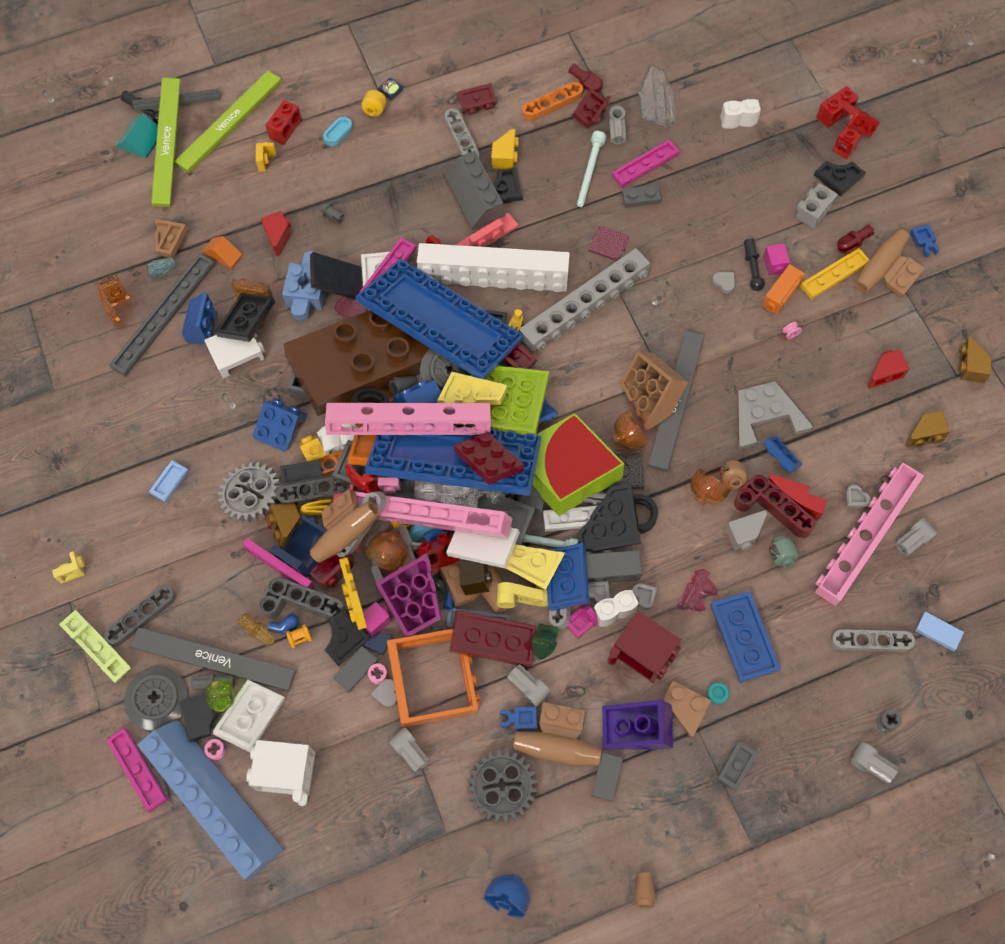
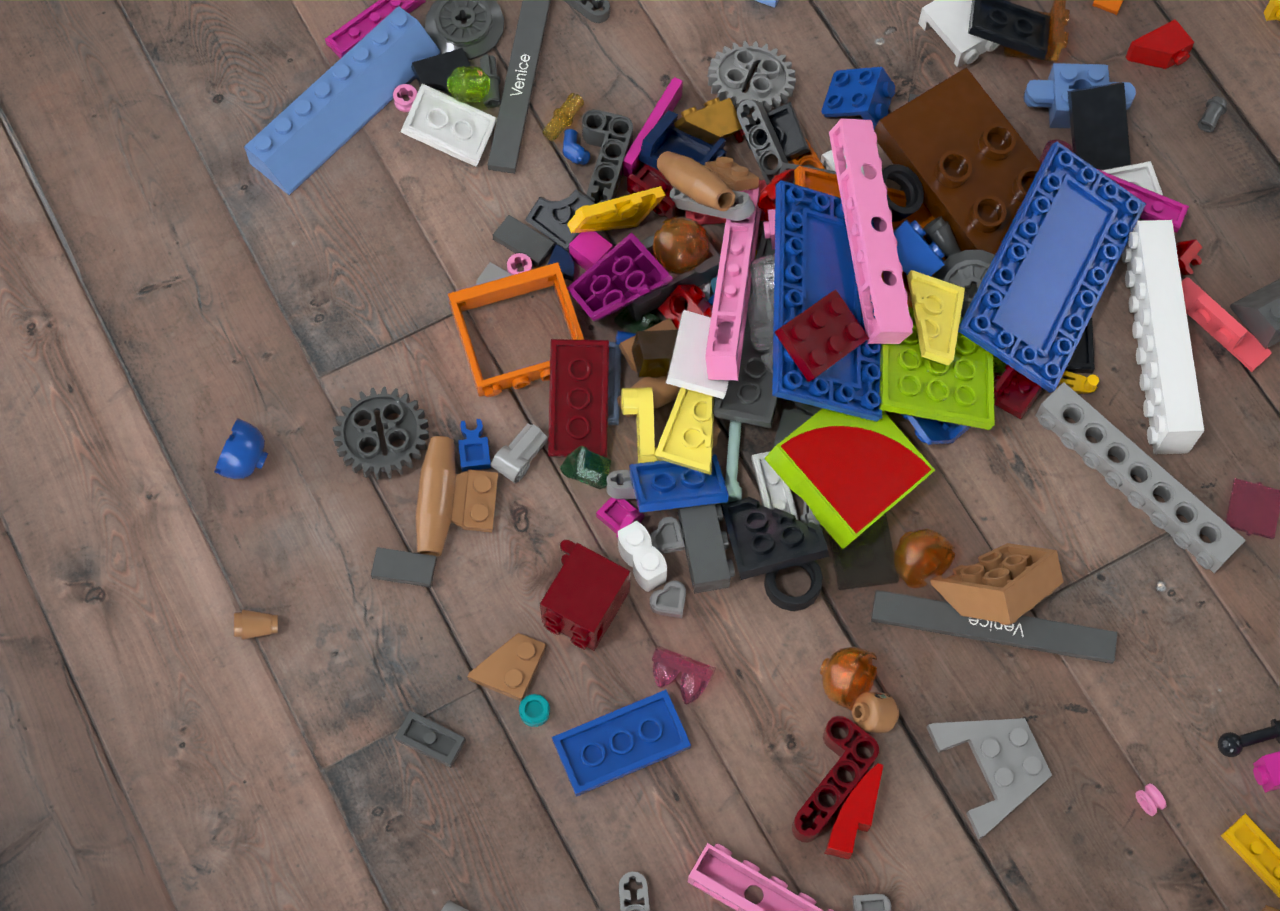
camera: 80 degrees right, 0 degrees up
(282, 769) = (380, 169): white container -> none
(298, 636) = (559, 166): light orange bush -> none
(311, 448) = (819, 139): yellow bracket -> none
(312, 508) = (739, 153): yellow piece -> none
(406, 747) = (425, 310): light grey piece -> none
(637, 726) = (475, 601): dark purple slope -> none
(724, 281) = (1222, 690): light grey tile -> none
(745, 530) = (788, 738): light grey slope -> none
(783, 289) = (1225, 781): orange window -> none
(783, 454) = (924, 789): blue plate -> none
(783, 551) = (760, 793): sand green head -> none

